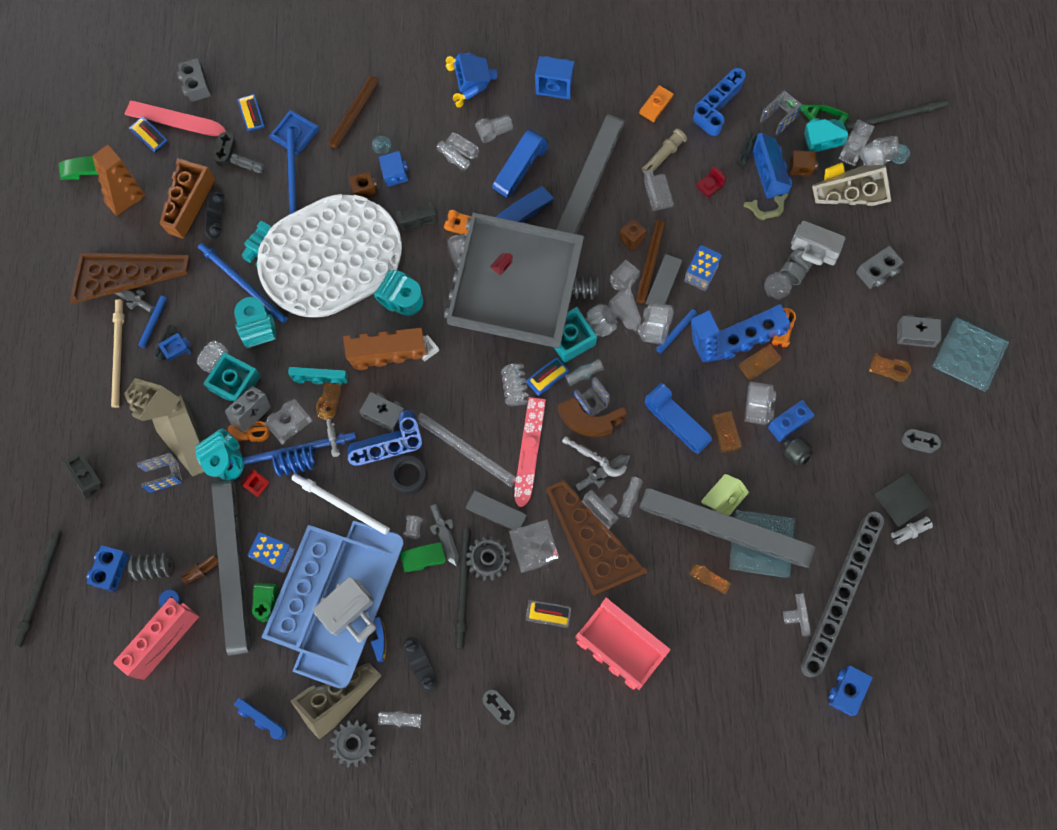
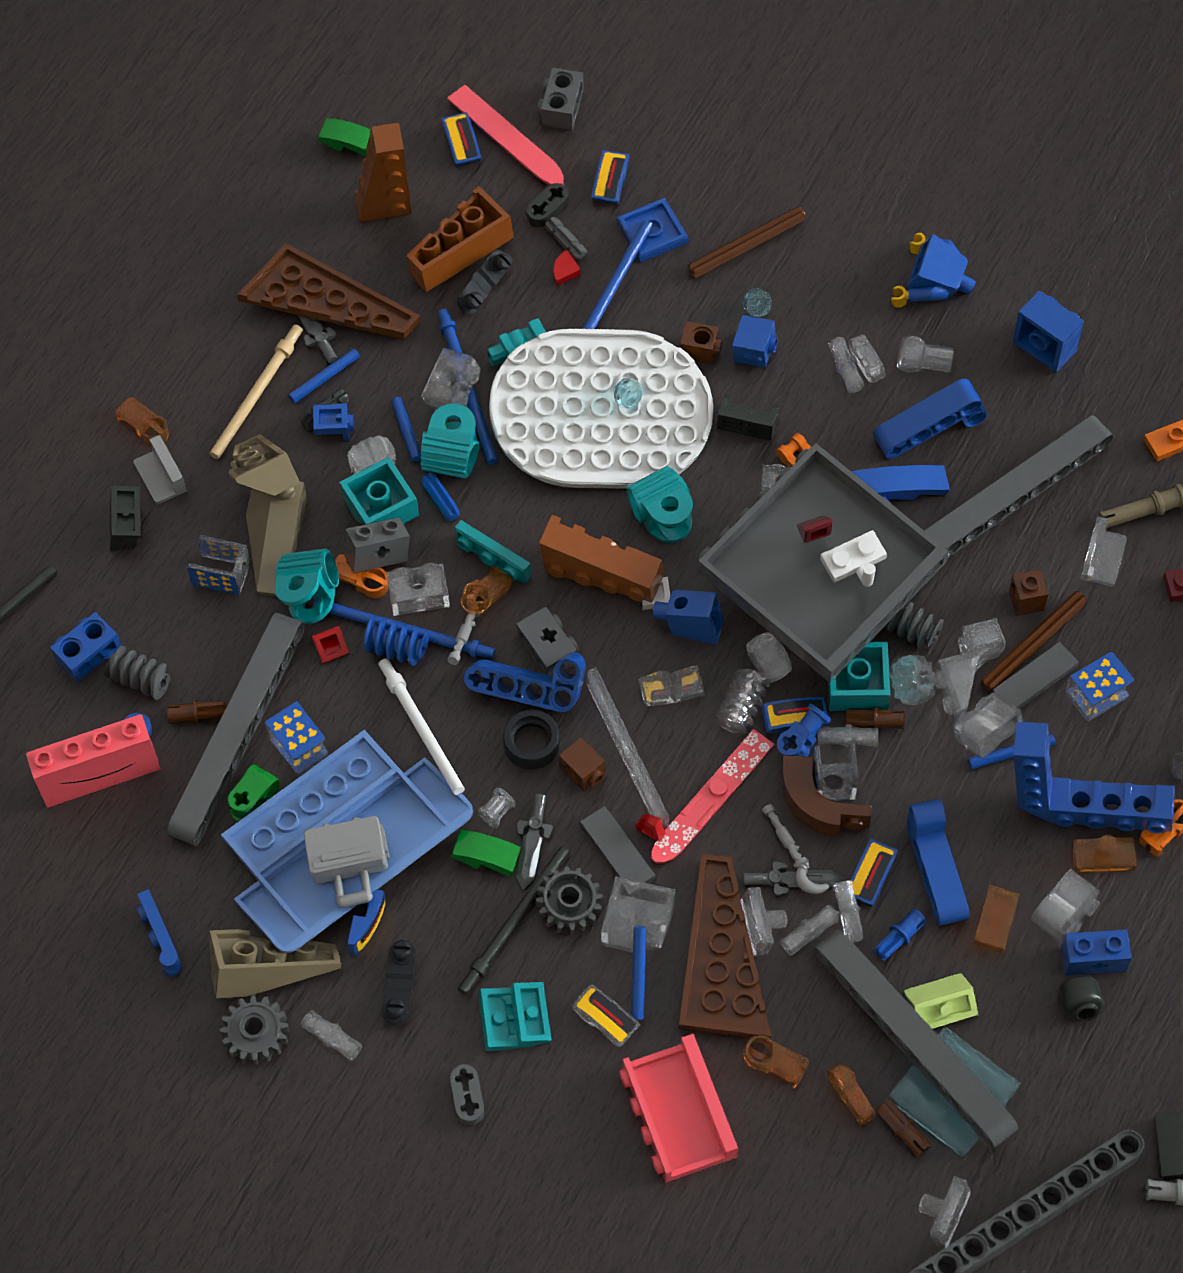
camera: 30 degrees right, 10 degrees down
(56, 408) = (141, 418): none -> clear orange piece
(88, 435) = (160, 472): none -> light grey panel
(222, 328) = (406, 429): none -> blue piece
(226, 278) = (449, 368): none -> clear brick
(257, 181) = (565, 268): none -> red tile
(267, 358) = (440, 497): none -> blue axle
(341, 238) = (628, 392): none -> clear light blue tile
(447, 473) = (582, 764): none -> reddish brown brick
(456, 350) = (692, 615): none -> blue torso
(469, 398) = (670, 688): none -> clear slope
(497, 644) = (514, 1016): none -> teal slope
(507, 488) = (650, 826): none -> red tile
(514, 351) = (769, 656): none -> clear gear
(534, 268) = (855, 557): none -> white plate
(554, 579) = (638, 977): none -> blue bar
(560, 384) = (802, 733): none -> blue connector
(593, 353) = (876, 718): none -> reddish brown axle
(644, 443) = (873, 871): none -> slope
(645, 473) = (848, 910): none -> clear axle
(661, 583) = (782, 1062): none -> clear orange piece
(680, 471) = (900, 934): none -> blue axle
(749, 581) = (903, 1127): none -> reddish brown axle

